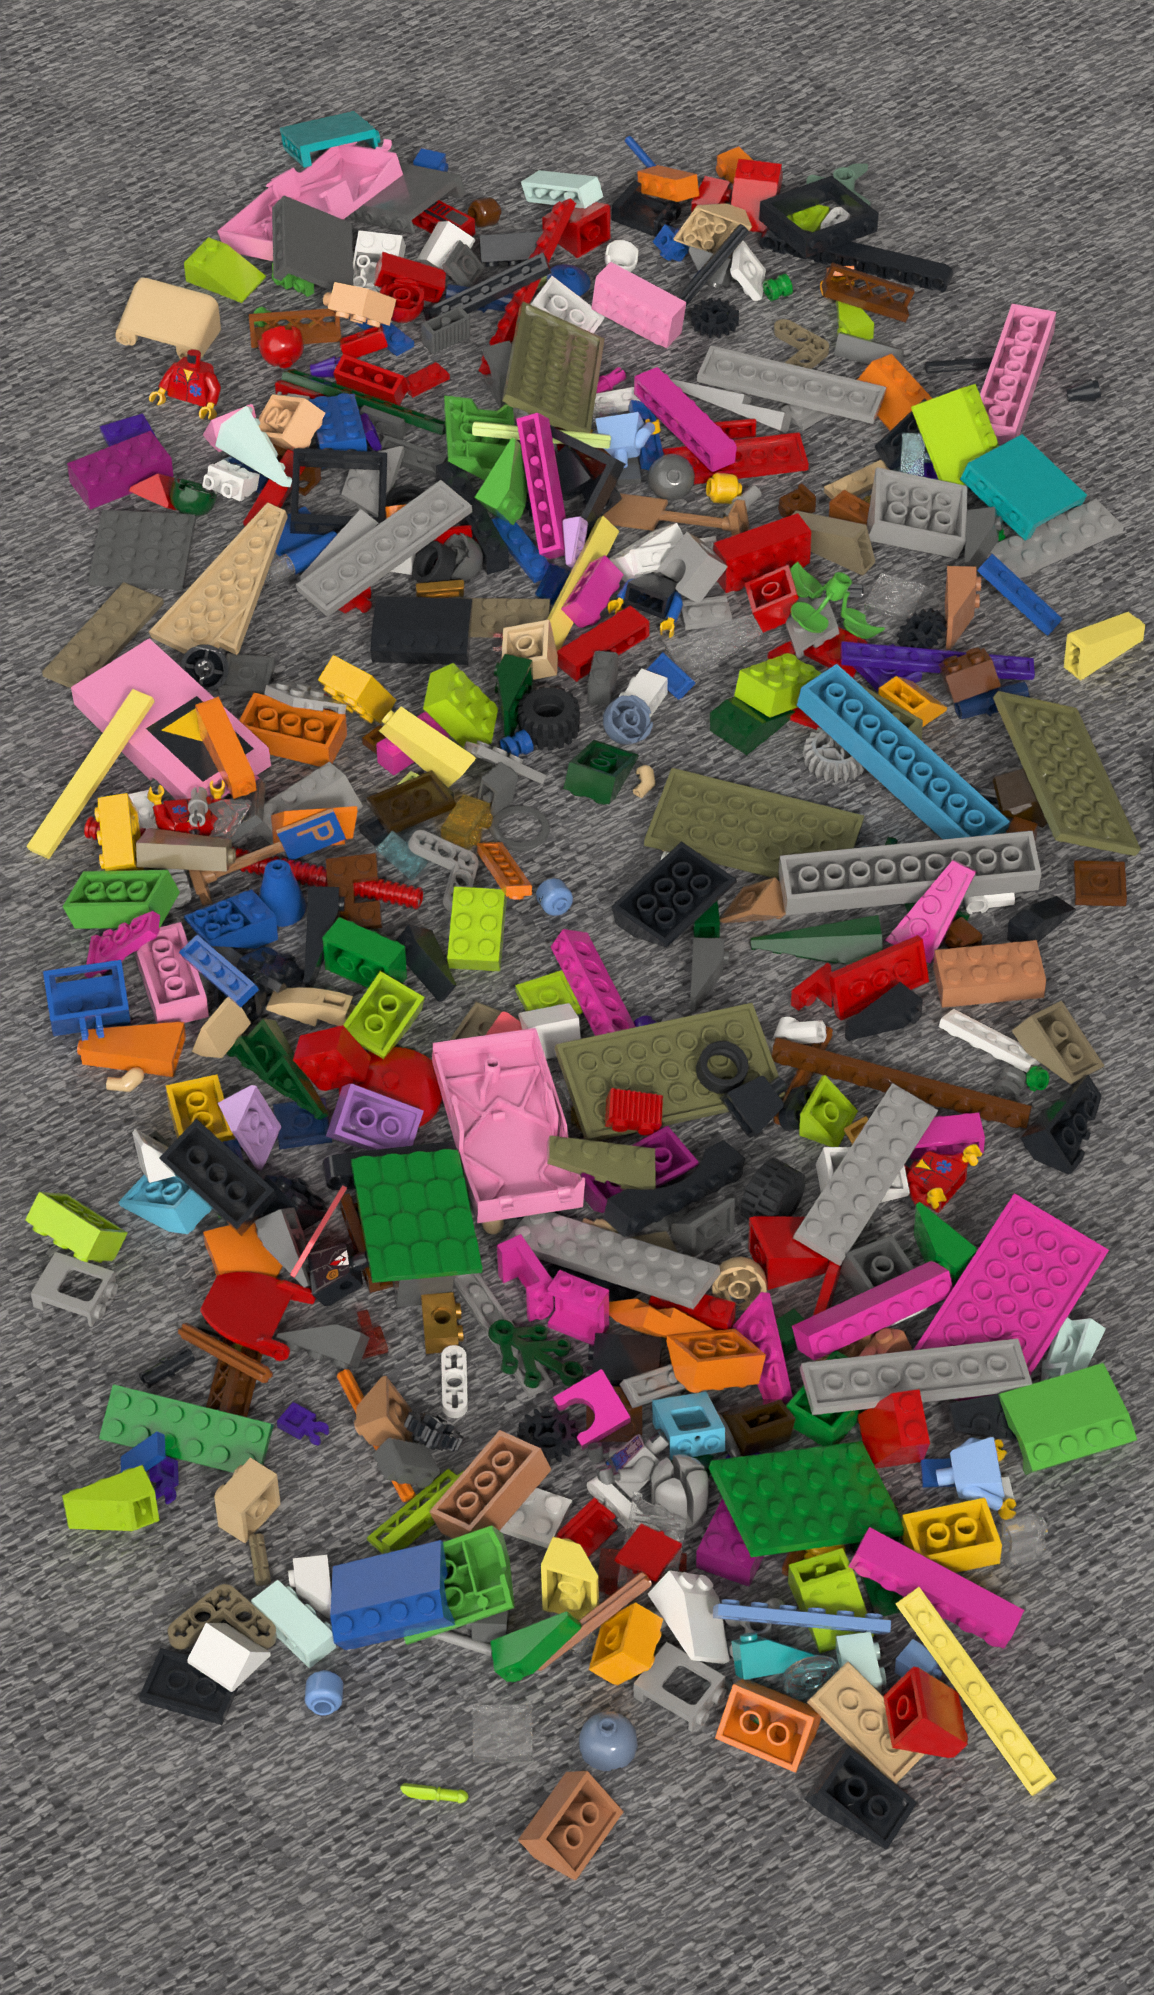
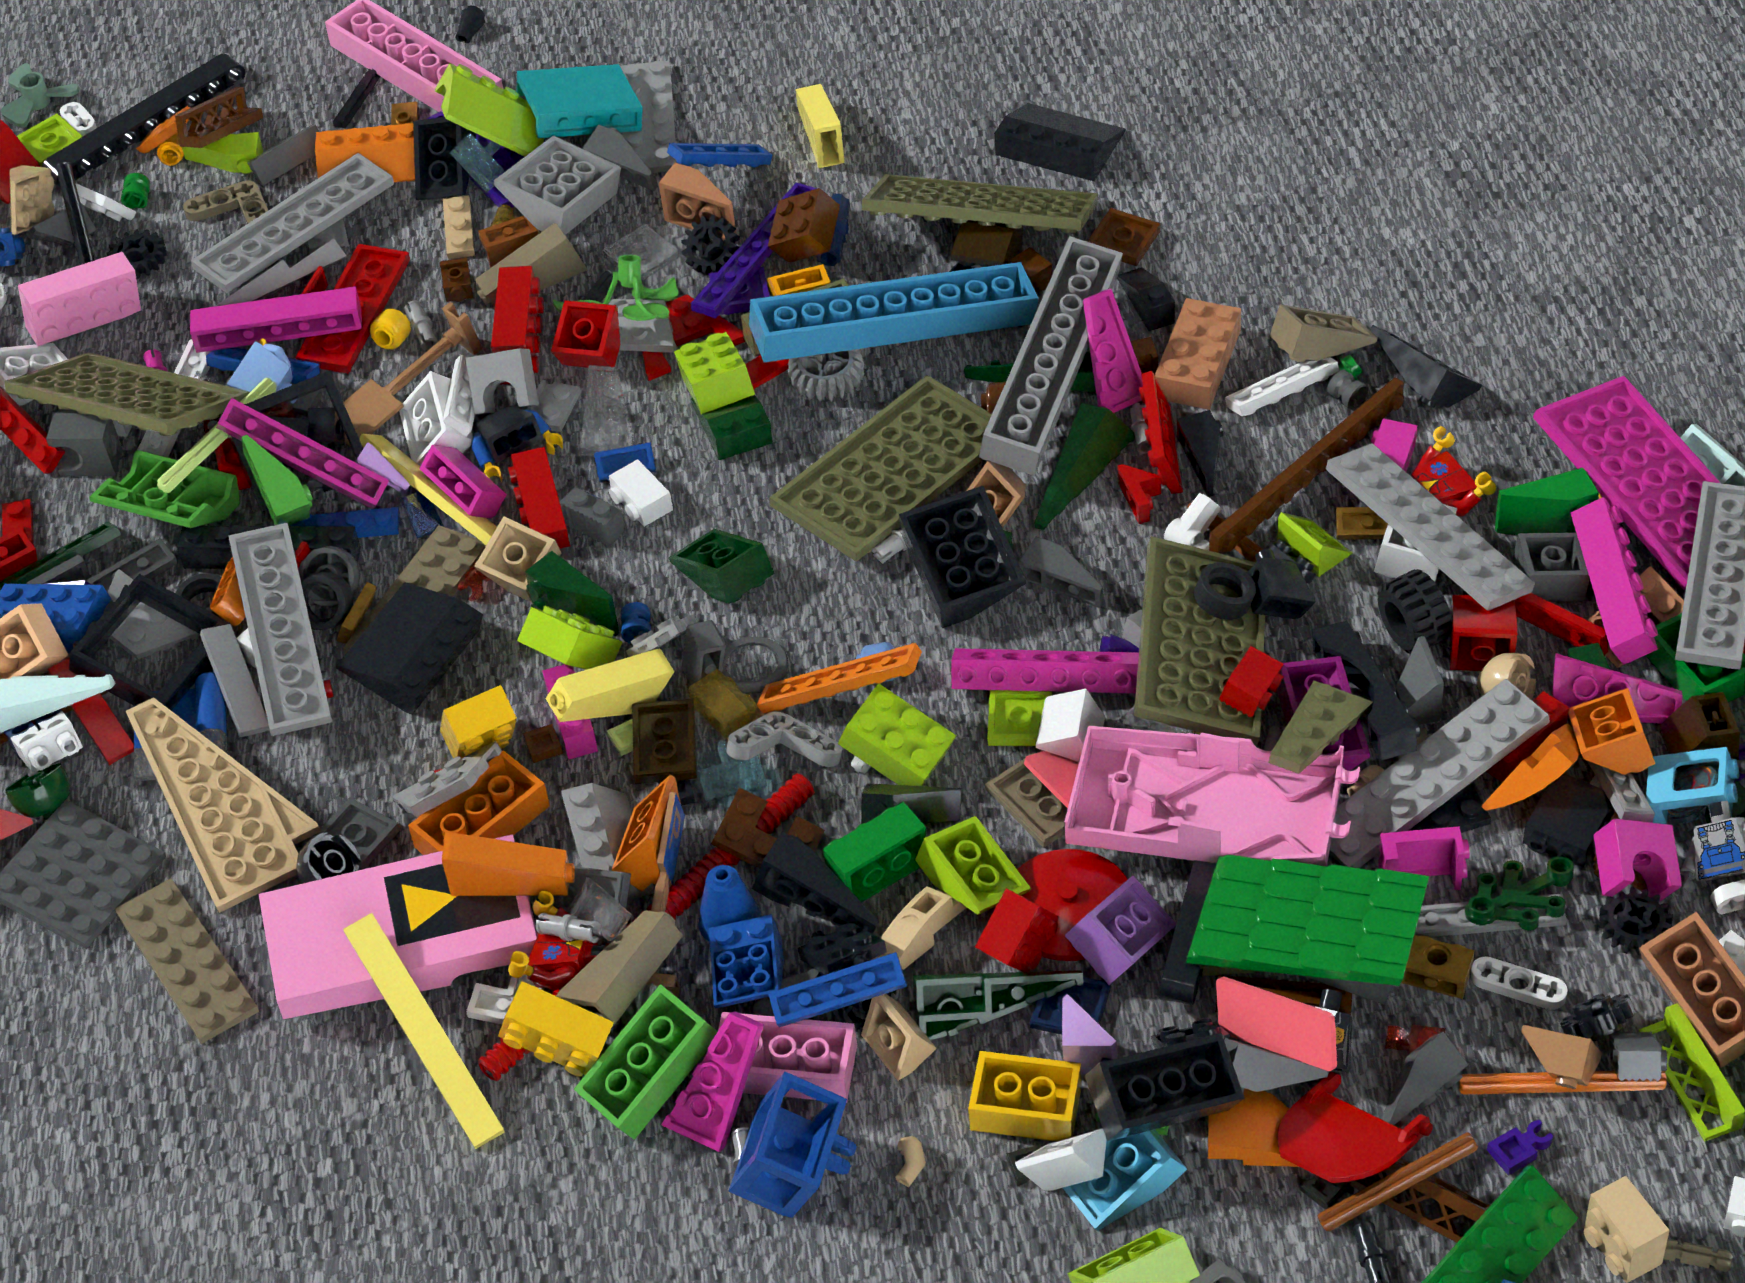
camera: 60 degrees left, 0 degrees up
(148, 1046) = (875, 1122): orange slope -> none
(549, 703) = (618, 561): black tyre -> none
(579, 1307) = (1488, 826): dark pink panel -> none
(627, 720) = (672, 515): sand blue cylinder -> none
(647, 781) = (757, 531): tan arm -> none
(671, 477) = (349, 359): dark grey cylinder -> none
(775, 210) = (83, 143): black window -> none

